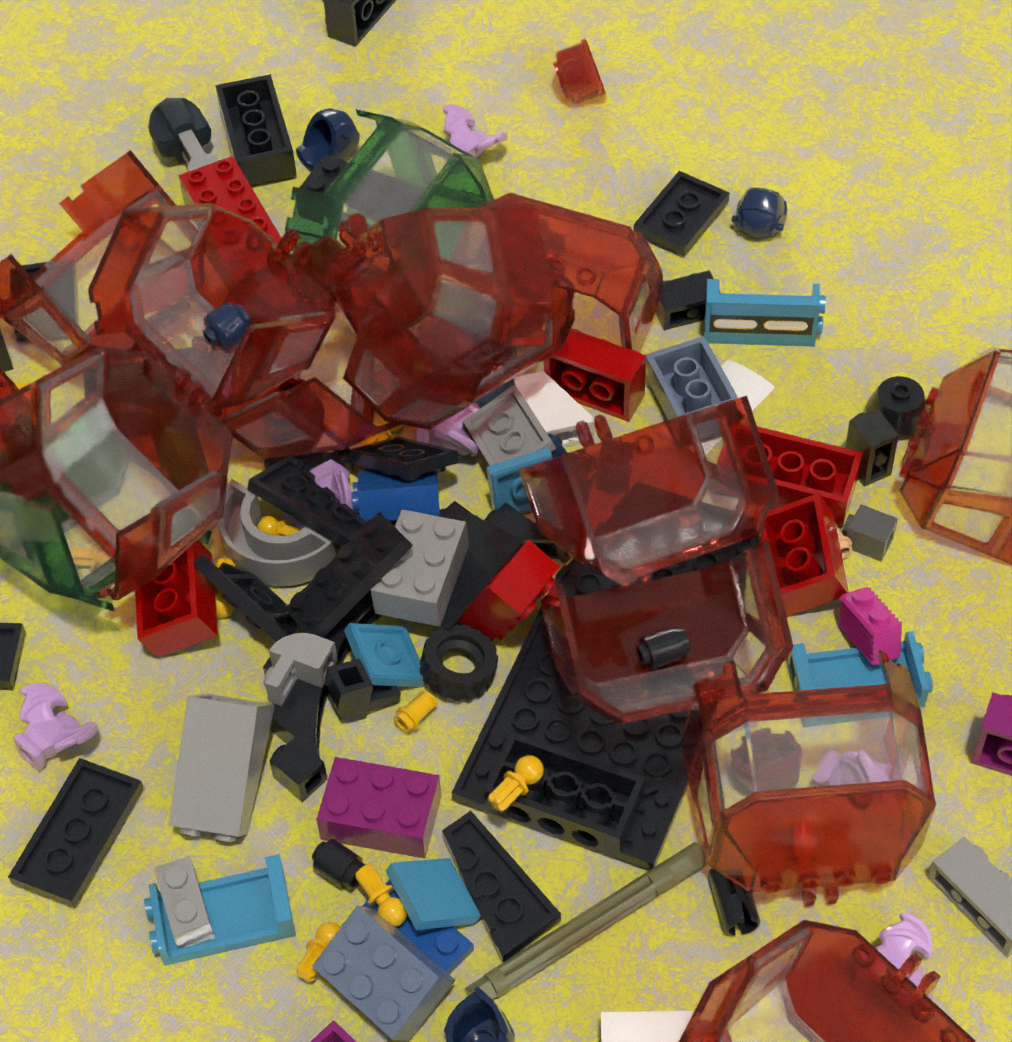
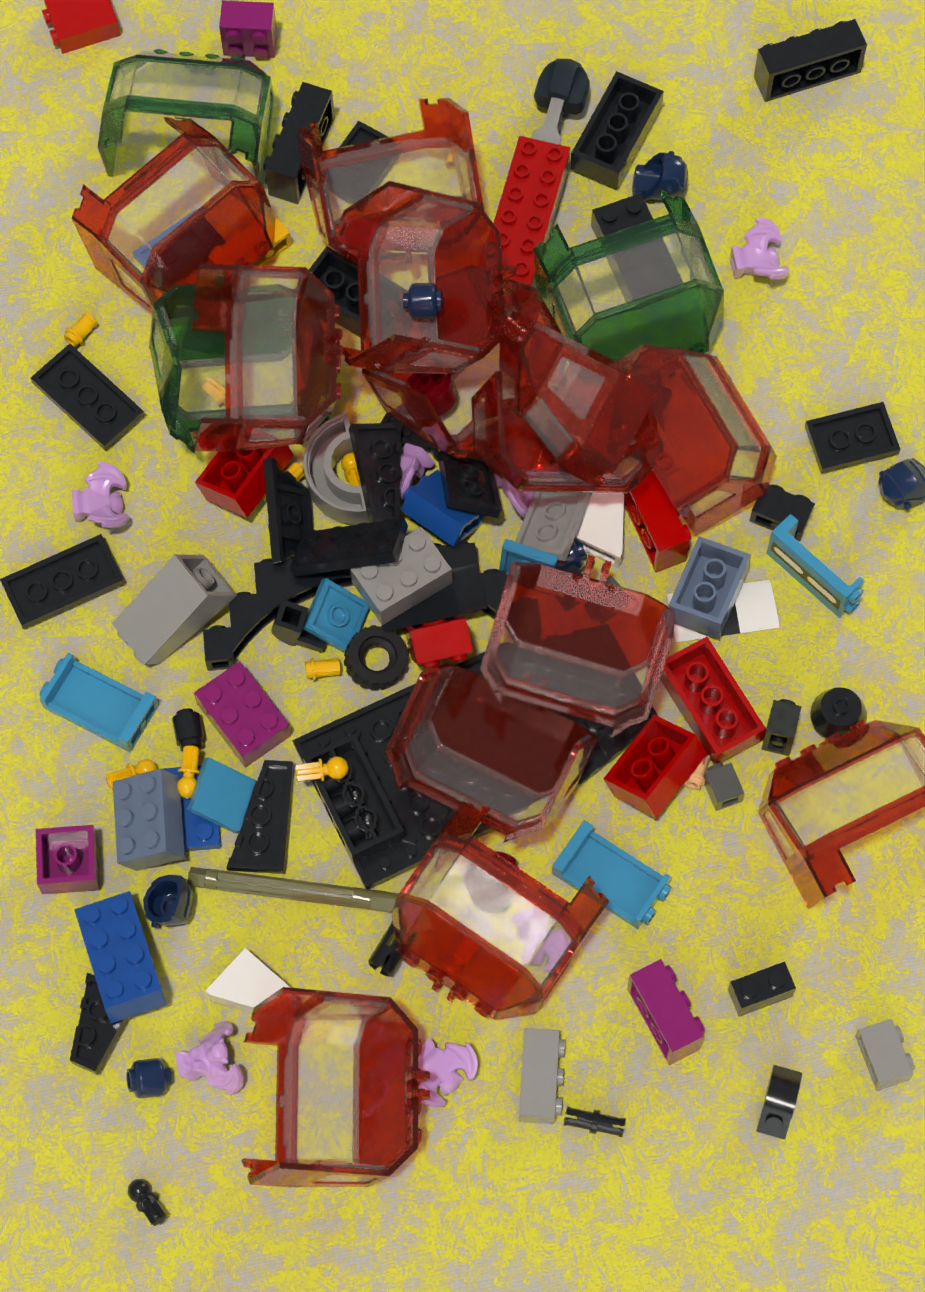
camera: 40 degrees right, 15 degrees up
(184, 902) = (78, 680): light grey brick -> none
(298, 657) = (271, 575): light grey brick -> none
(578, 73) = (894, 260): clear red wheel -> none
(663, 647) = (499, 755): black brick -> none
(870, 624) = (648, 850): dark pink brick -> none

